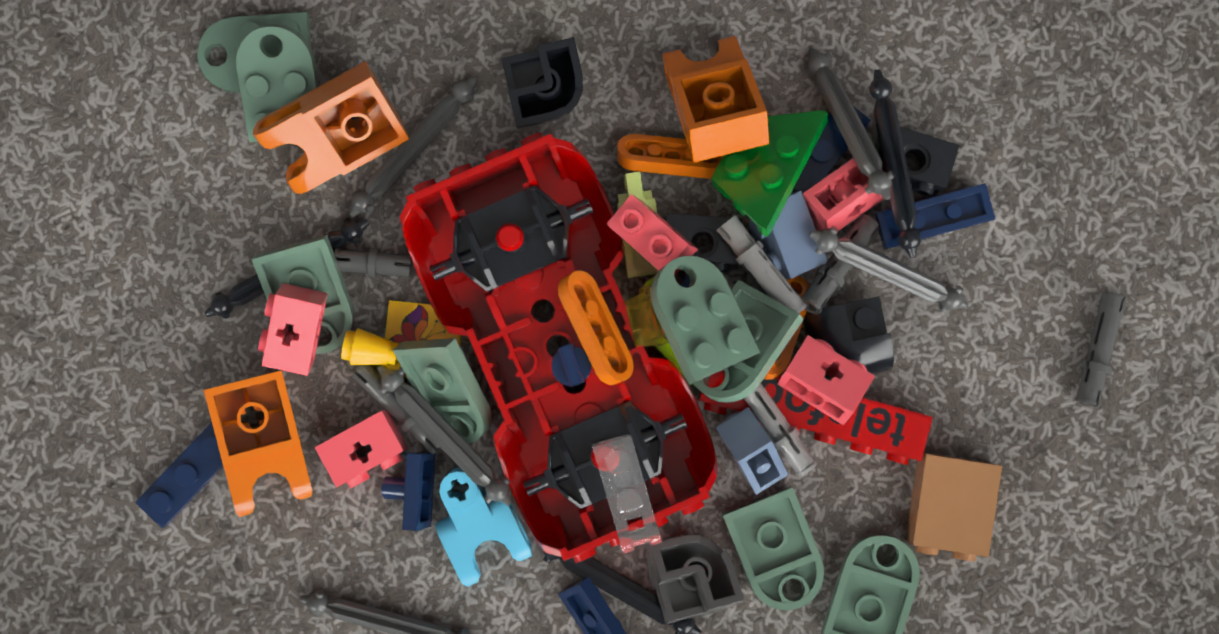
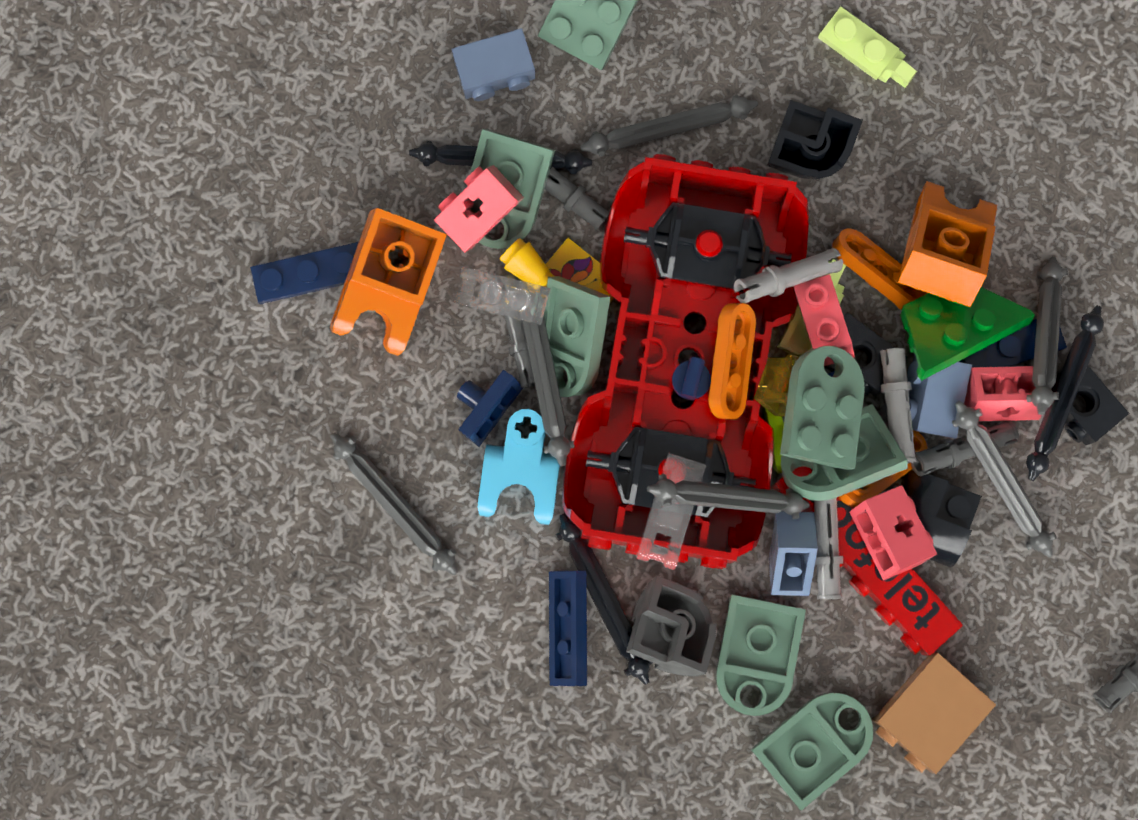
camera: 25 degrees right, 5 degrees down
(227, 192) = (494, 65): none -> sand blue brick
(327, 134) = (609, 67): orange brick -> none
(340, 451) = (449, 332): coral brick -> none
(365, 390) = (502, 295): none -> clear plate
(587, 232) = (776, 279): none -> light grey pin
(666, 451) = (727, 496): none -> dark grey wheel
(941, 214) = (1077, 464): dark blue plate -> none

